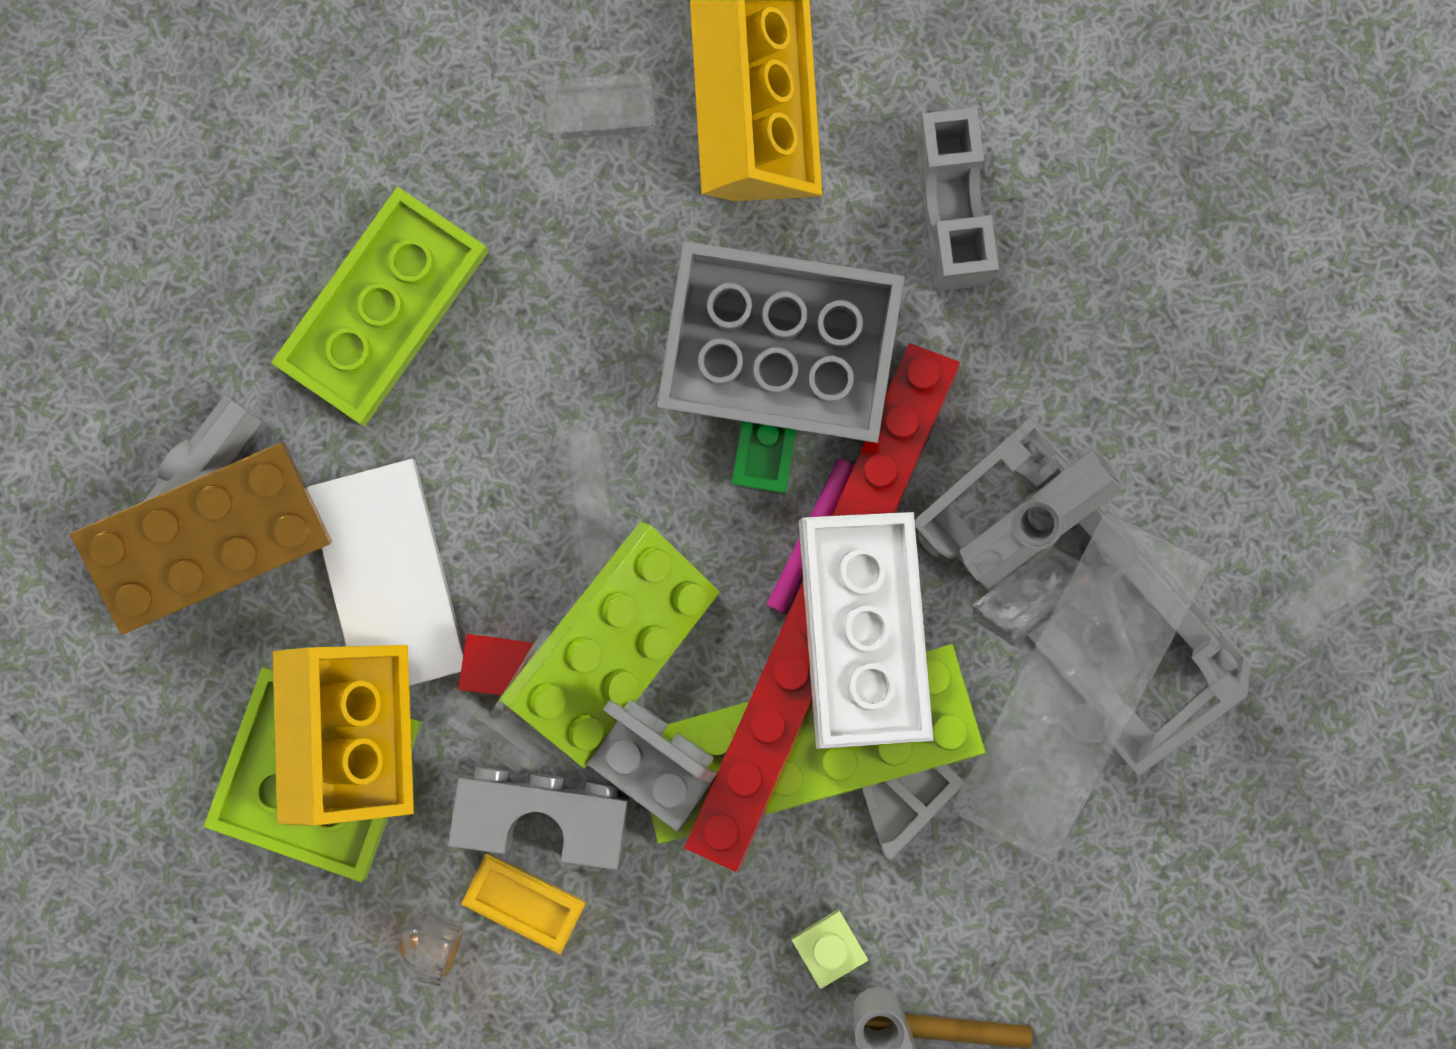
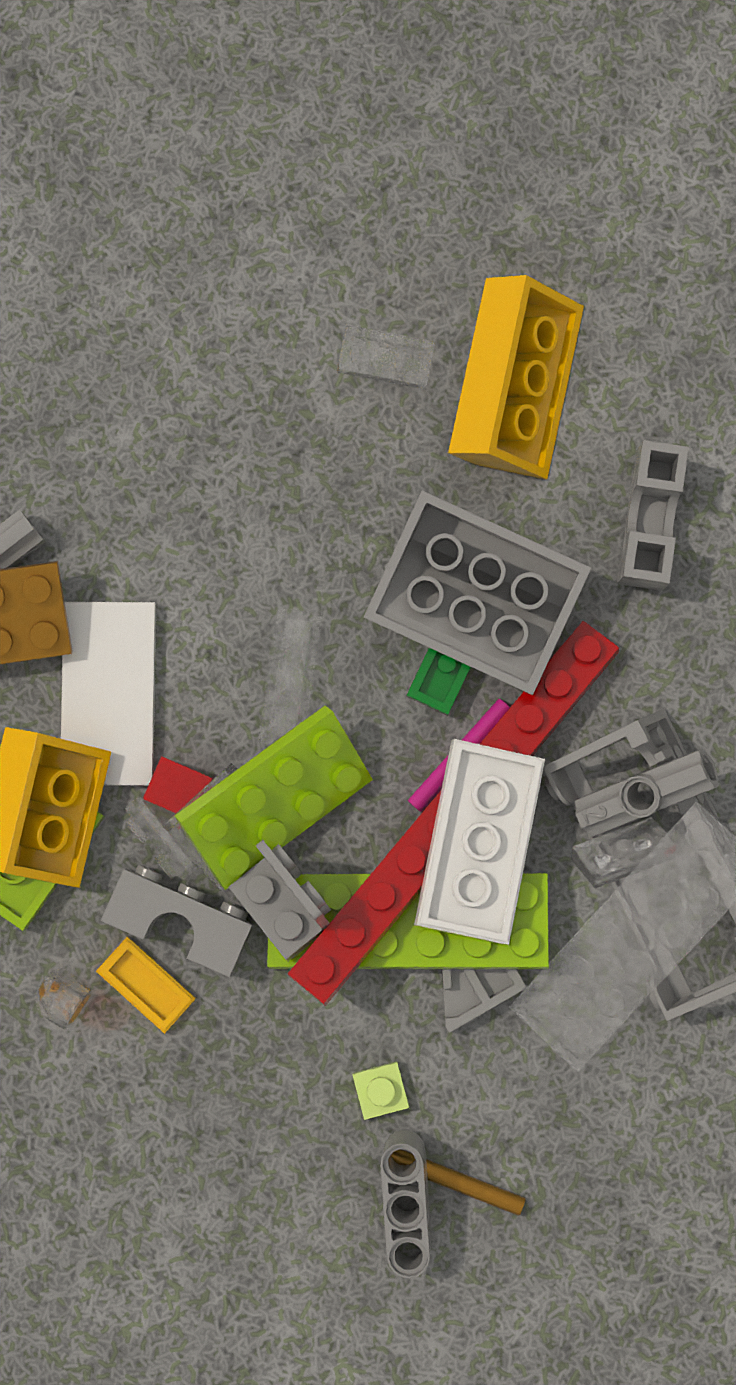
camera: 15 degrees right, 0 degrees up
(380, 306) = (163, 471): lime plate -> none

